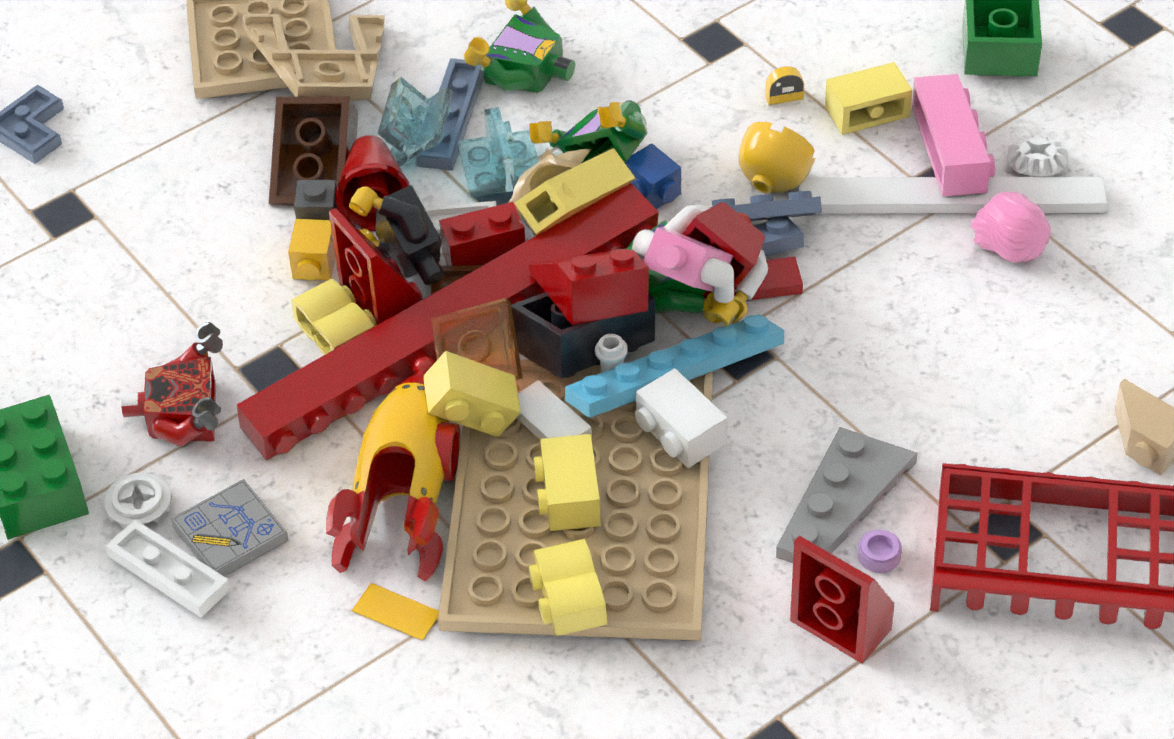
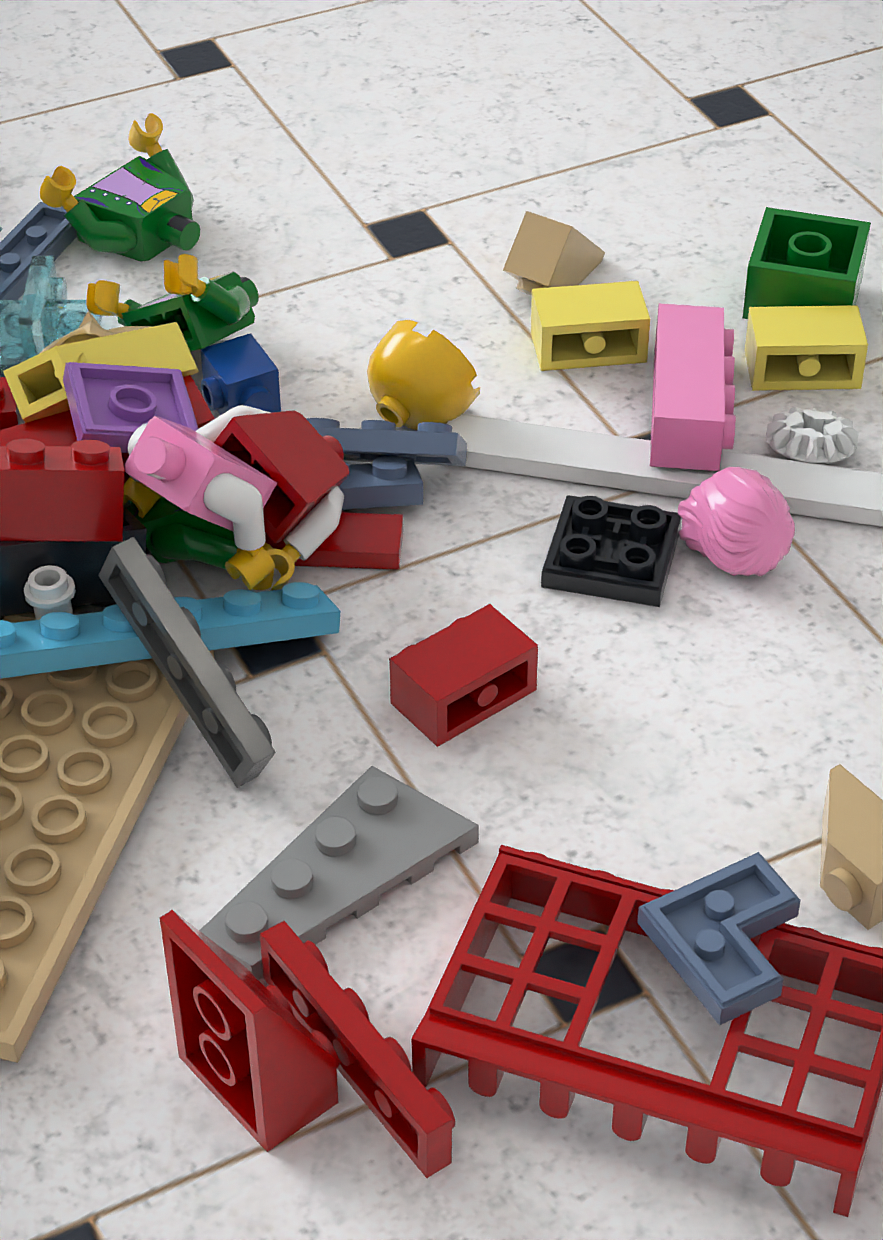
camera: 10 degrees right, 5 degrees down
(608, 215) = (117, 399): none -> medium lavender tile
(681, 418) = (117, 708): white brick -> none
(704, 370) = (176, 647): none -> dark grey plate
(784, 85) = (478, 294): tile -> none
(825, 50) = (550, 254): none -> tan slope
(874, 358) = (463, 674): none -> red brick
(879, 551) = (367, 966): lavender tile -> none
(913, 604) = (372, 1065): none -> red plate
(934, 258) = (612, 550): none -> black tile
(1015, 92) = (805, 347): none -> light yellow brick
(1081, 494) = (709, 929): none -> sand blue tile

